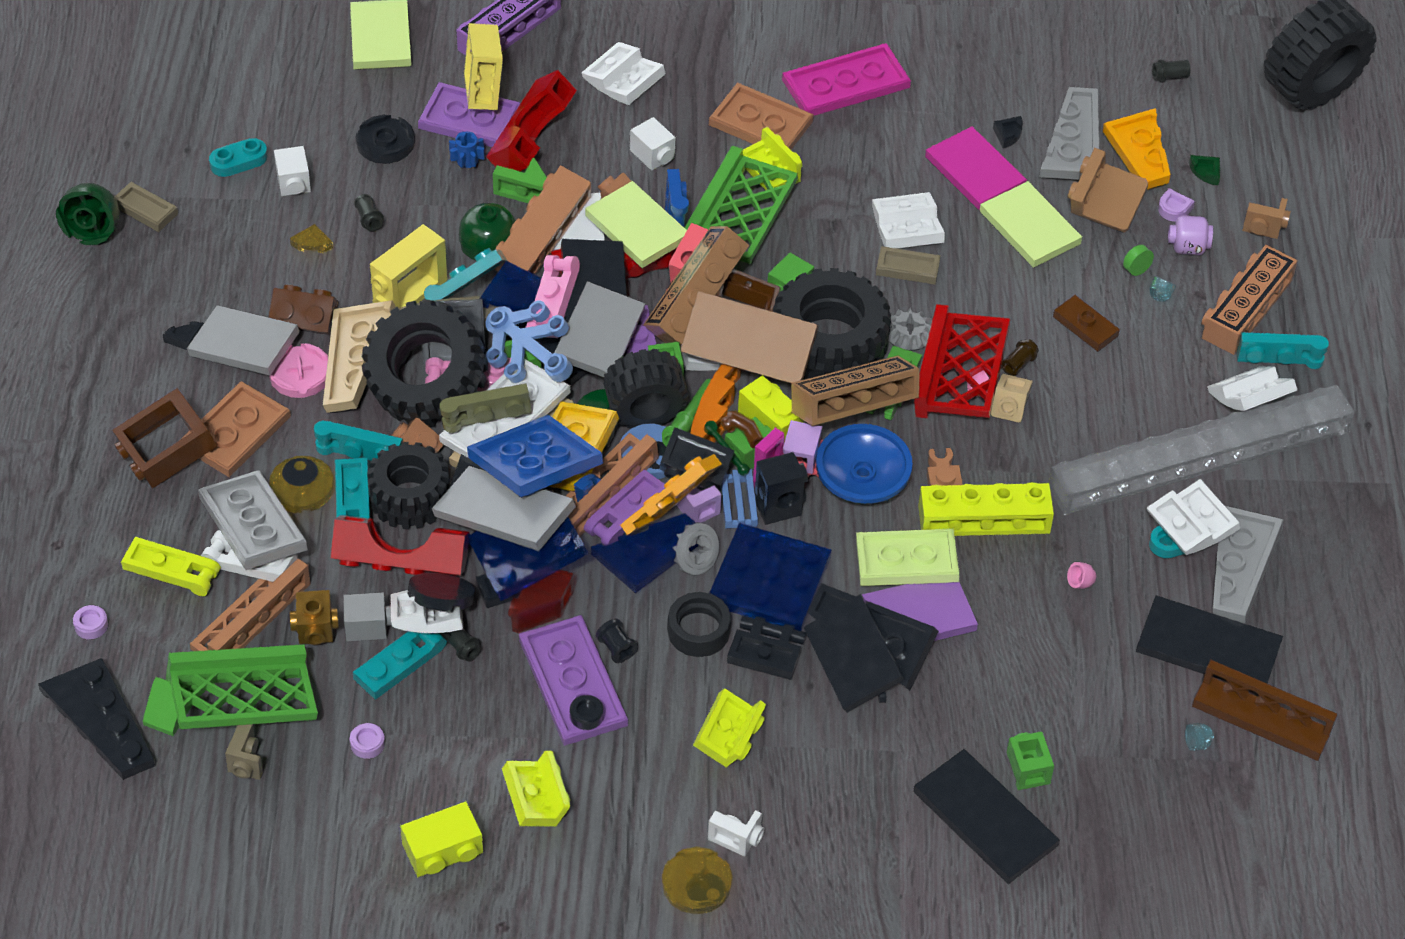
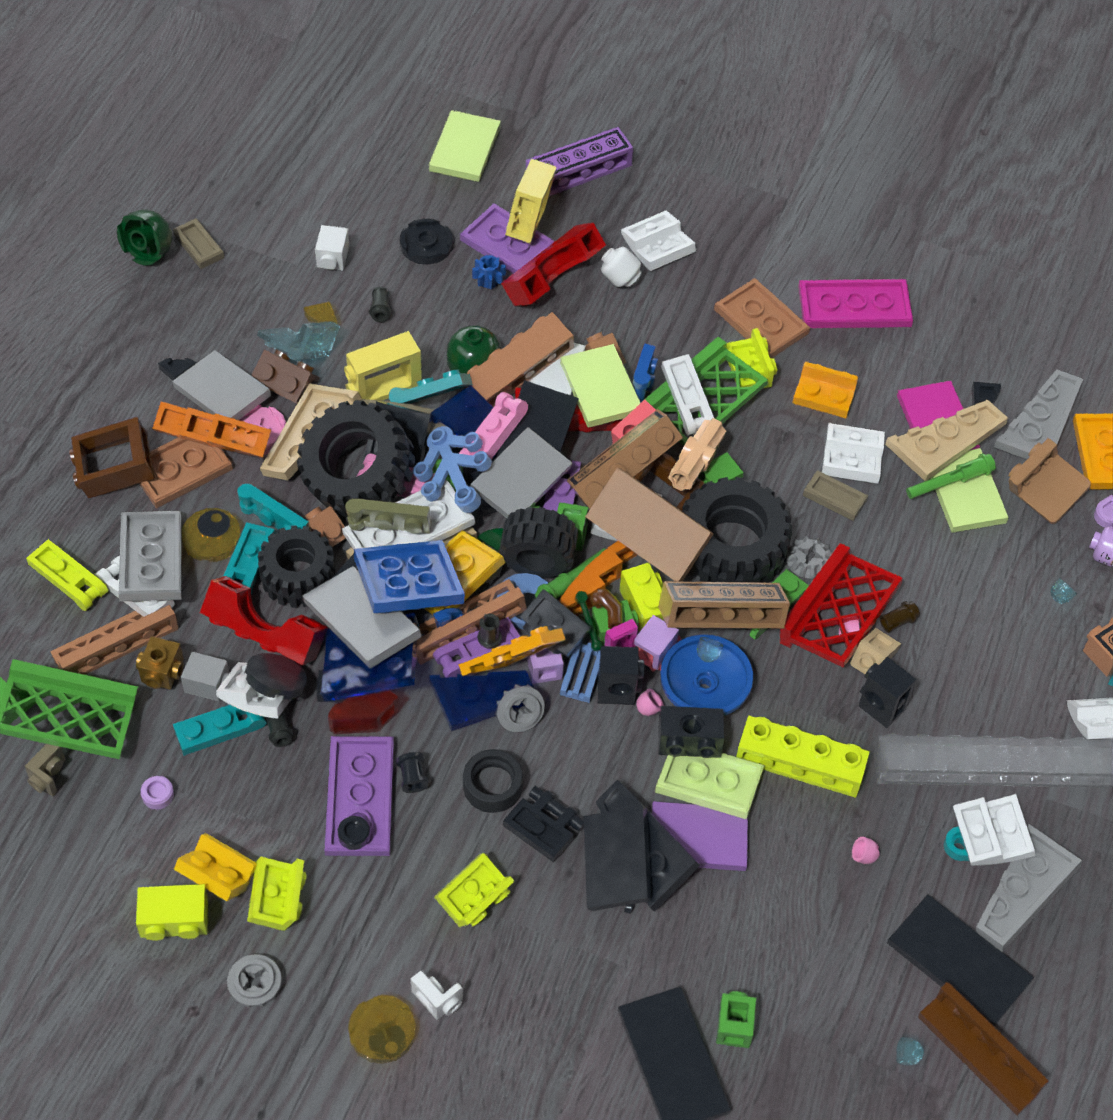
camera: 20 degrees right, 5 degrees up
(238, 157) = (295, 222): teal plate -> none
(257, 381) = (212, 429): none -> orange slope
(321, 267) = (310, 341): none -> clear light blue bracket
(466, 782) = (218, 867): none -> yellow bracket
(517, 184) = (515, 315): bright green slope -> none
(544, 866) = (254, 966): none -> light grey gear
(600, 107) = (620, 267): none -> white head
(636, 488) = (489, 633): none -> pearl dark grey pin
(652, 143) = (653, 313): white brick -> none
(728, 205) = (686, 392): none -> white plate
(765, 260) = (697, 454): none -> light nougat piece
(770, 576) = (578, 755): clear blue plate -> none
(817, 507) = (649, 703): none -> bright pink hinge
(855, 168) = (825, 389): none -> light orange bracket
(858, 436) = (708, 649): none -> clear light blue hinge
(872, 518) = (690, 732): none -> black brick
(942, 471) = (779, 708): nougat plate -> none
(993, 181) = (945, 440): none -> tan wing
(1038, 194) = (982, 465): none -> bright green pin
(1040, 425) = (886, 691): none -> black brick
(1086, 323) = (977, 602): reddish brown plate -> none
(1138, 260) = (1052, 556): bright green tile -> none

